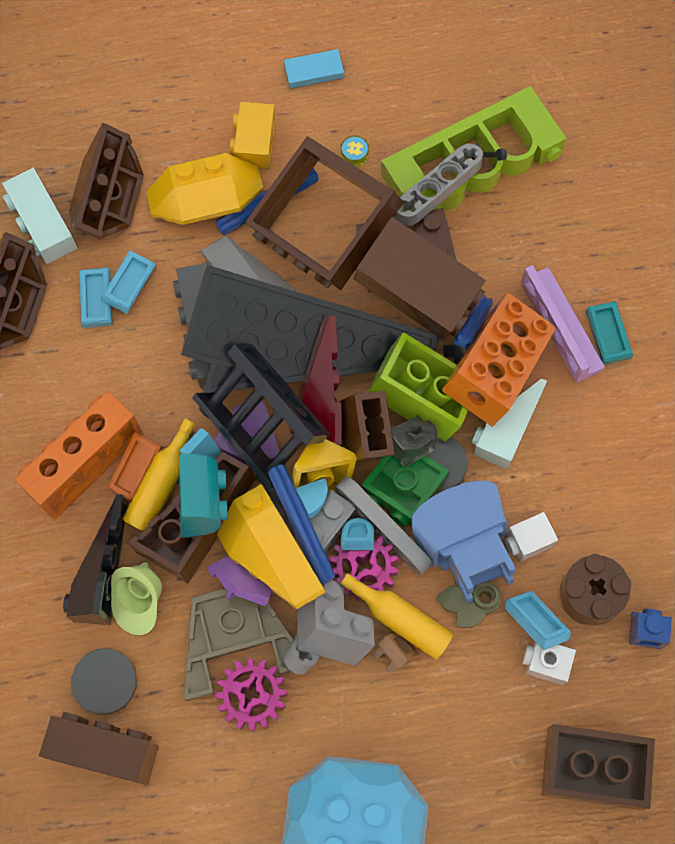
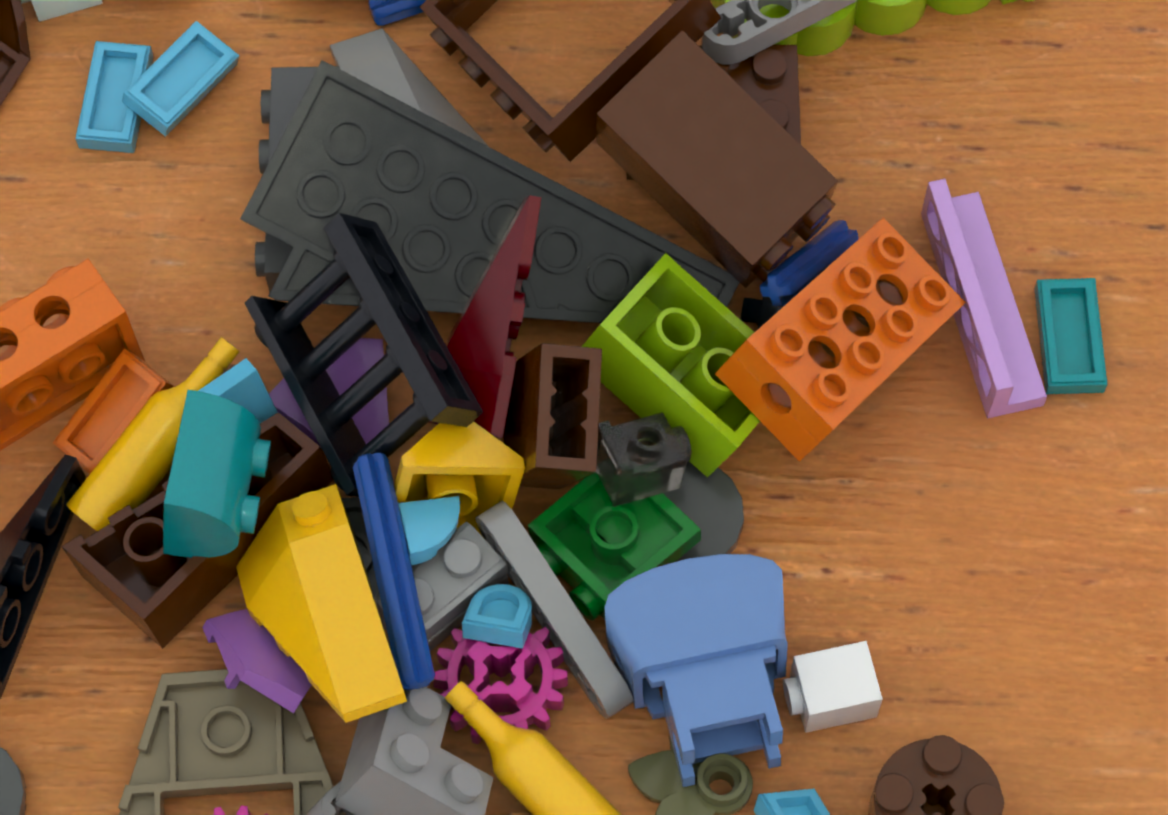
camera: 10 degrees right, 5 degrees down
(135, 598) = (54, 653): yellowish green piece -> none
(501, 441) = (822, 489): light aqua slope -> none

